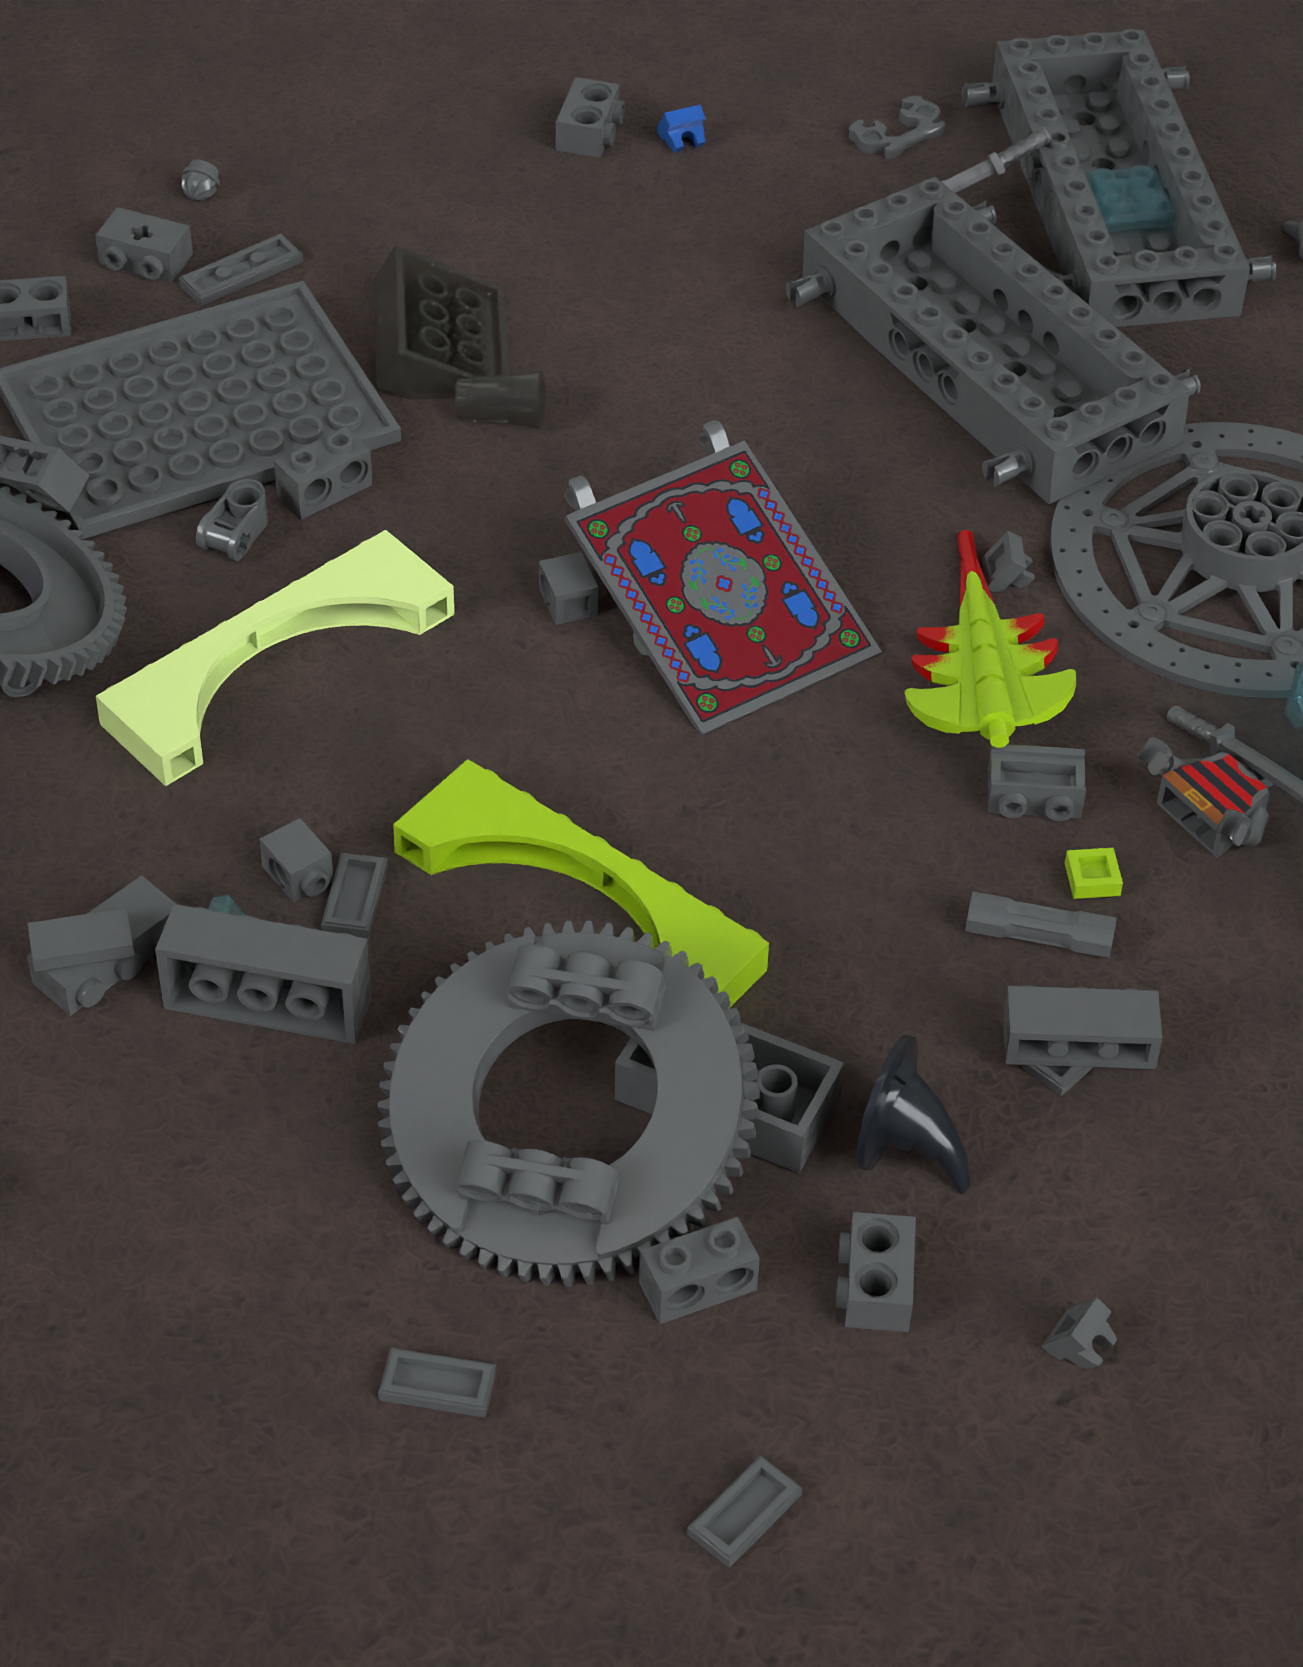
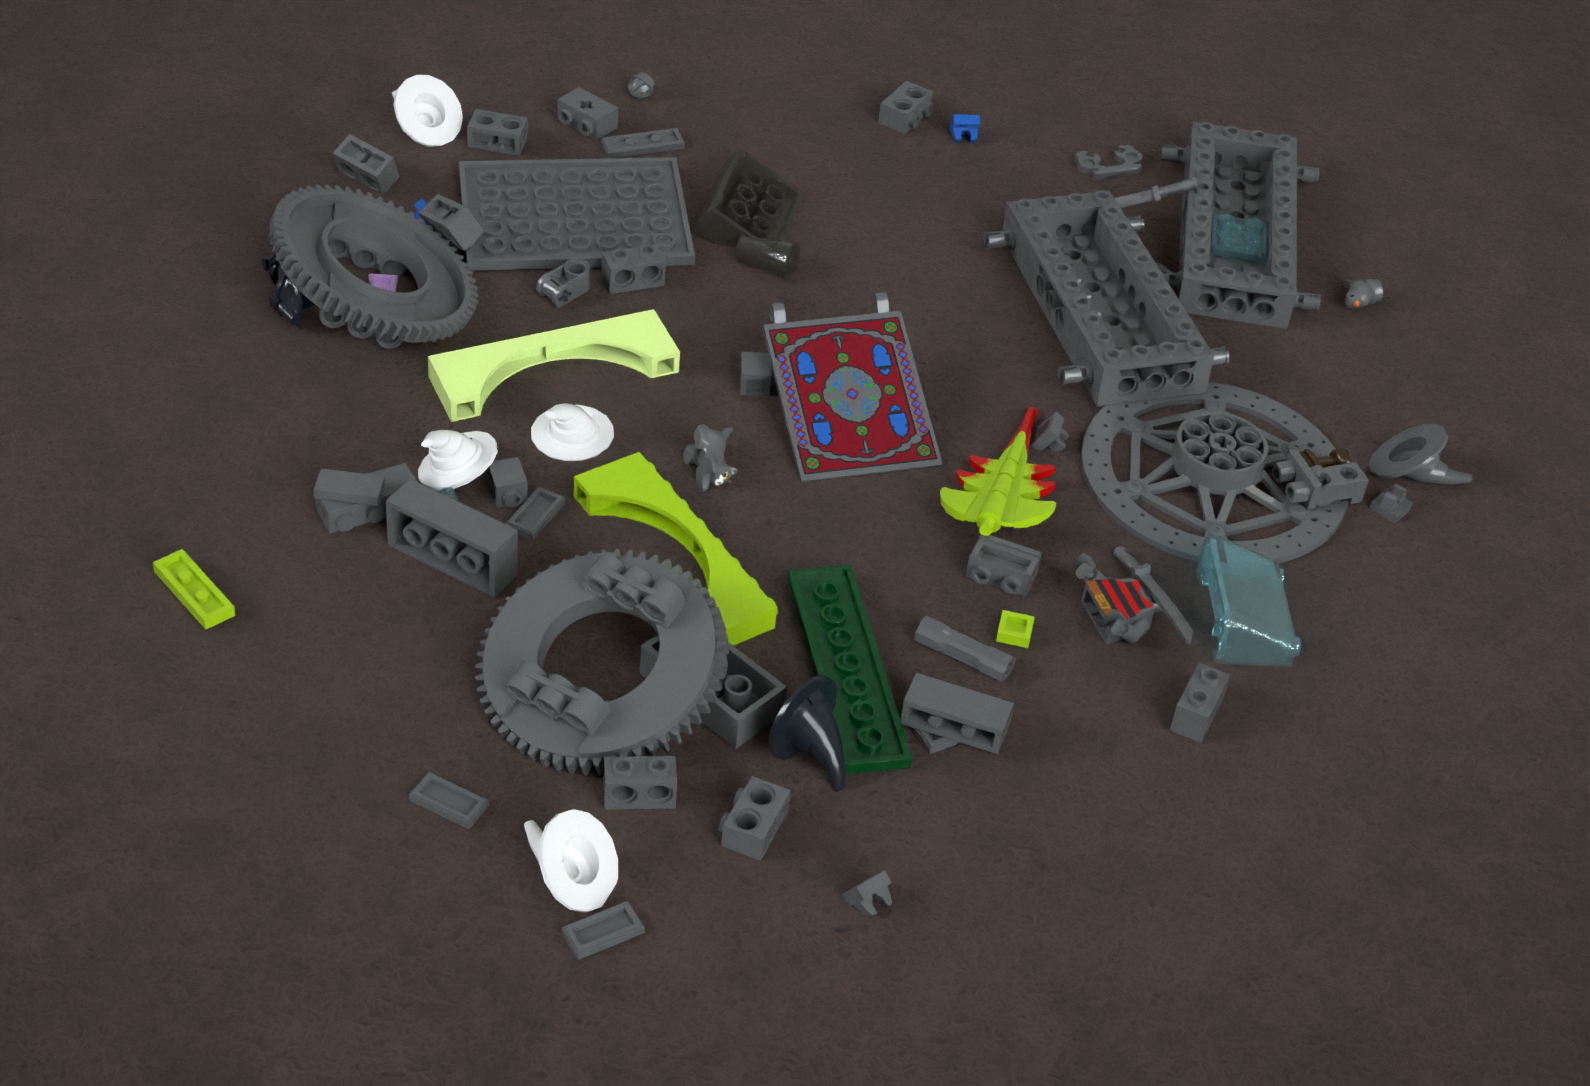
camera: 15 degrees right, 5 degrees down
(210, 847) = (455, 458): none -> white piece
(347, 752) = (572, 432): none -> white piece
(563, 735) = (709, 456): none -> dark grey animal
(664, 1417) = (575, 859): none -> white piece
(896, 993) = (846, 651): none -> dark green plate

